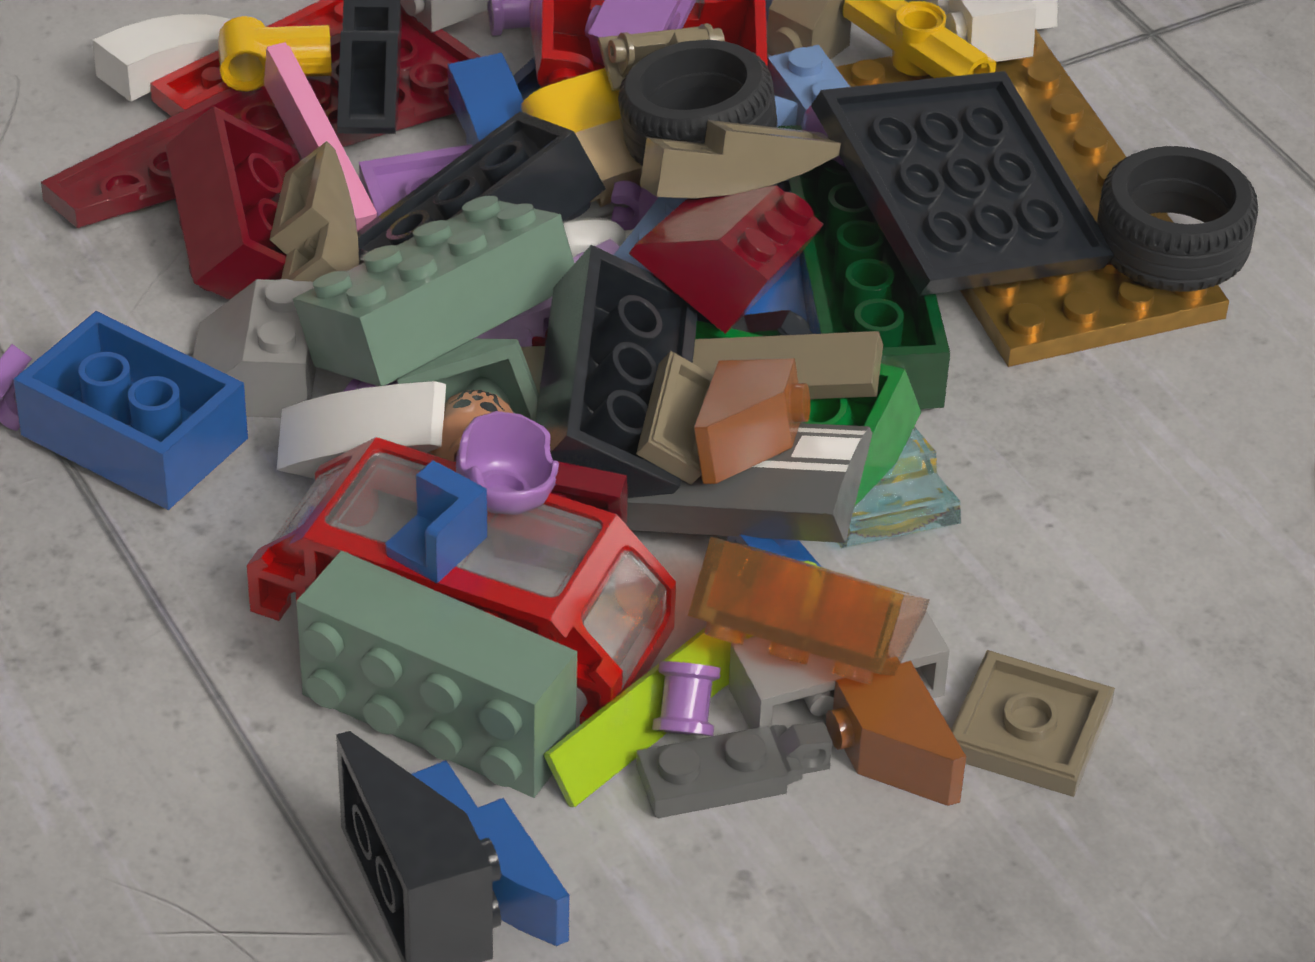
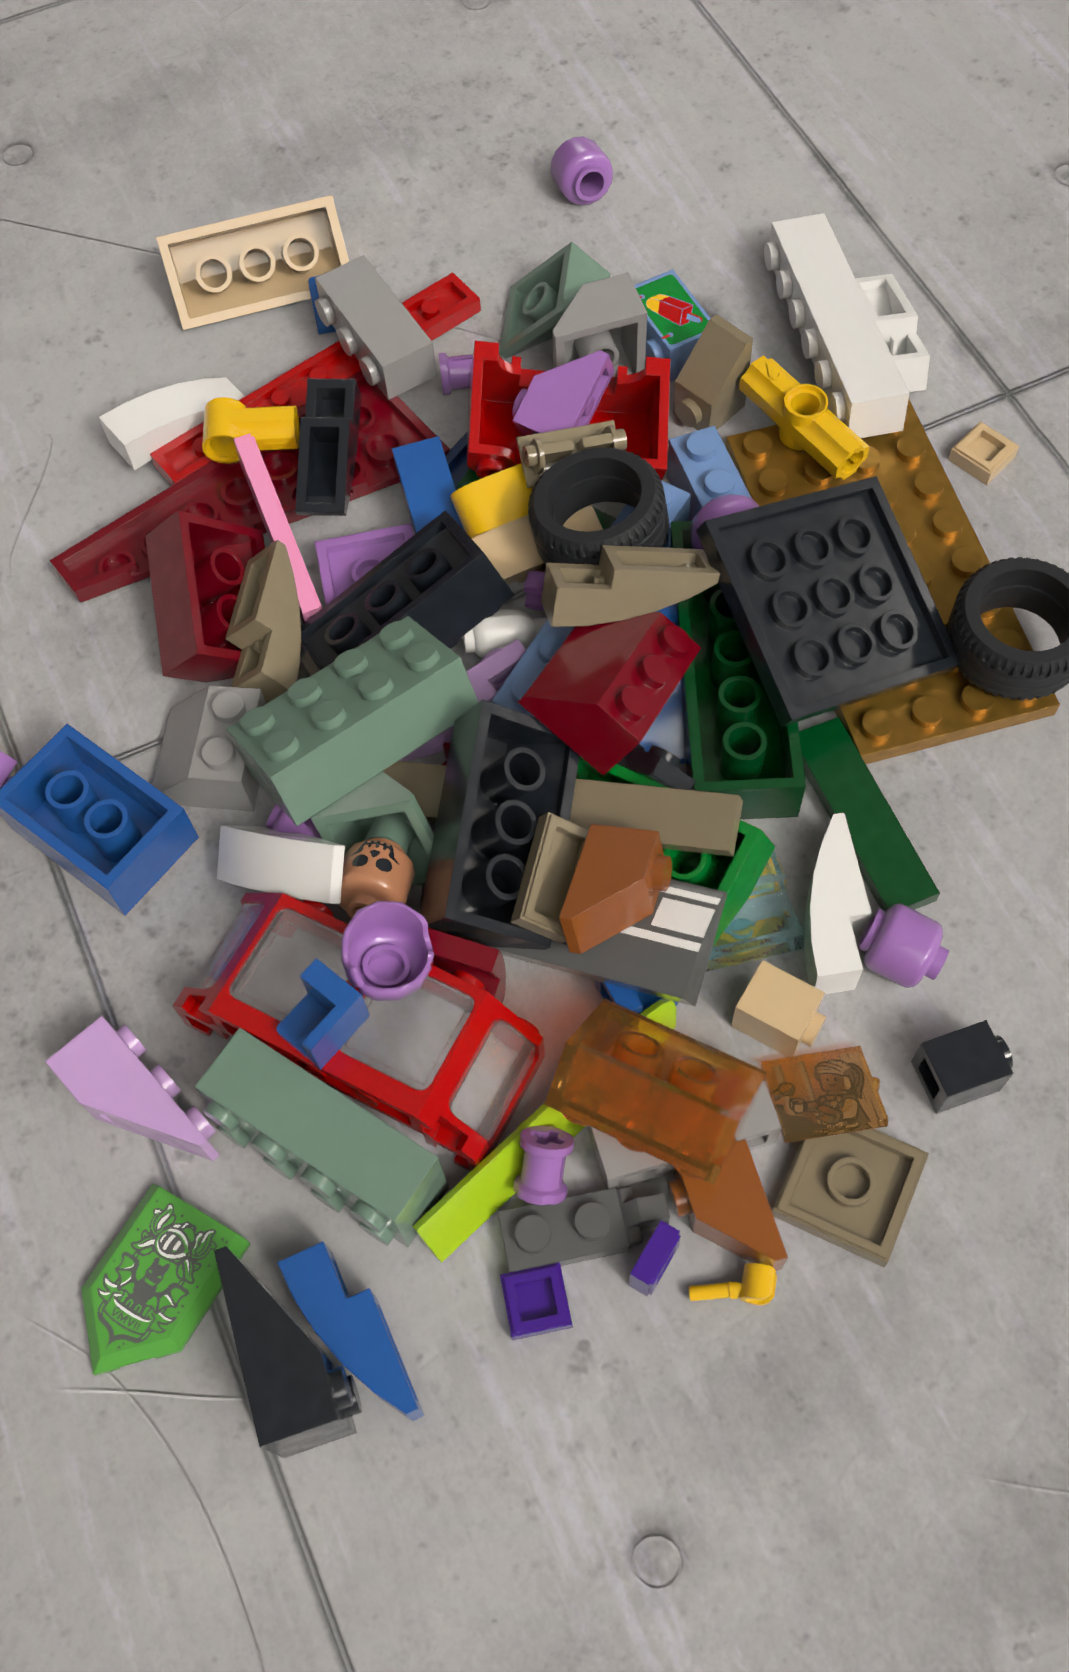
camera: 10 degrees right, 20 degrees up
(195, 658) = (117, 1089): none -> lavender slope
(247, 828) = (154, 1282): none -> bright green tile
(687, 832) = (536, 1301): none -> dark purple tile
(818, 781) = (655, 1259): none -> dark purple tile
(932, 811) = (756, 1286): none -> yellow hand
(939, 564) = (779, 1010): none -> tan brick
(993, 484) = (835, 913): none -> white slope
(999, 638) = (824, 1094): none -> clear orange piece
(1022, 410) = (879, 841): none -> dark green tile
(1070, 505) = (903, 945): none -> medium lavender head
(1127, 84) = (983, 453): none -> tan tile
(1144, 609) = (963, 1066): none -> black brick

